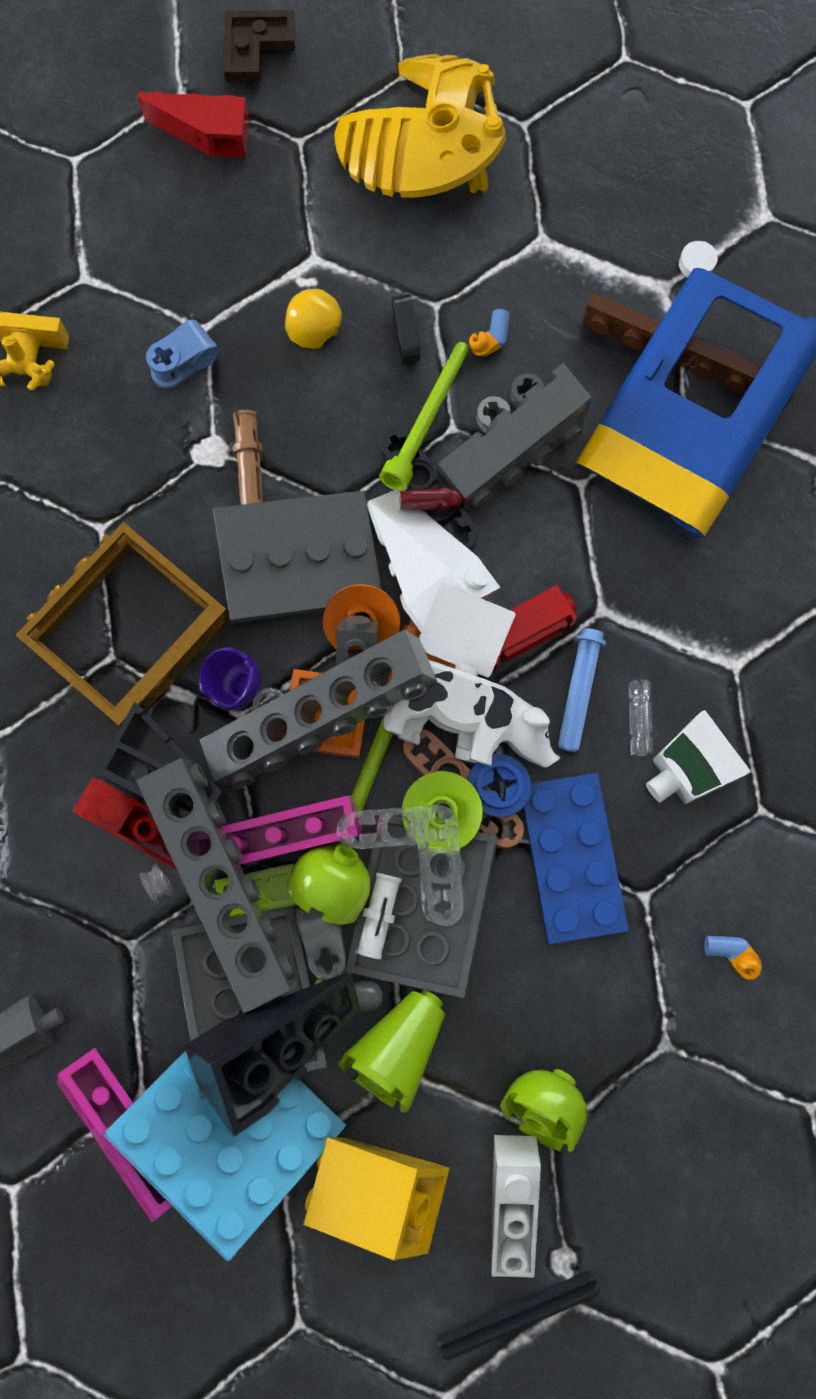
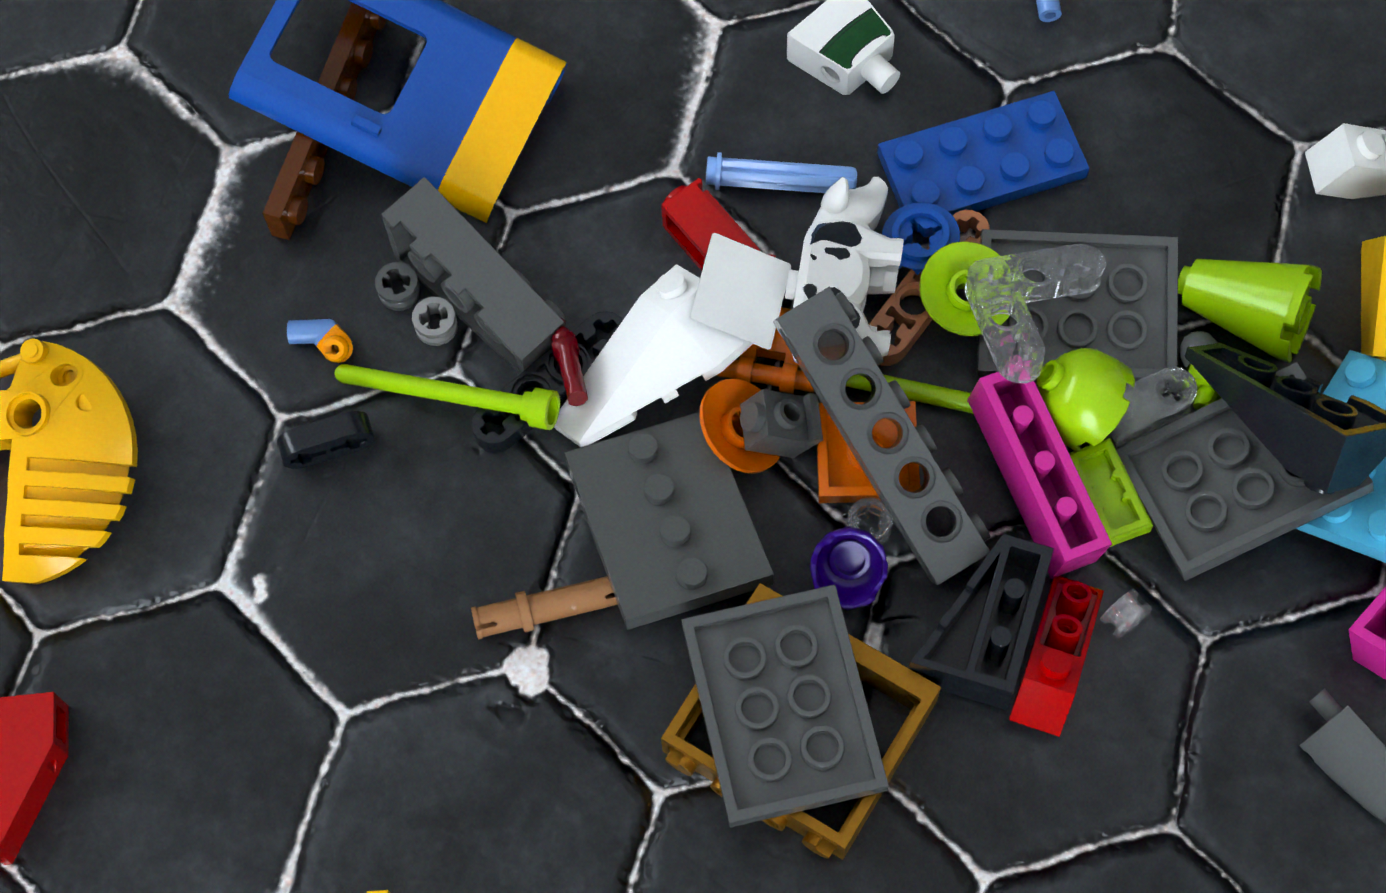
camera: 95 degrees left, 10 degrees down
(123, 606) = (783, 706): none -> dark grey plate
(161, 793) = (1230, 443): dark grey brick -> none
(182, 353) = (391, 719): medium blue piece -> none
(312, 318) = (319, 564): yellow hair -> none
(378, 916) = (1116, 342): white pin -> none
(548, 1107) = (1272, 139): lime cylinder -> none
(640, 717) = (801, 109): clear axle -> none
(697, 255) = (192, 116): white tile -> none

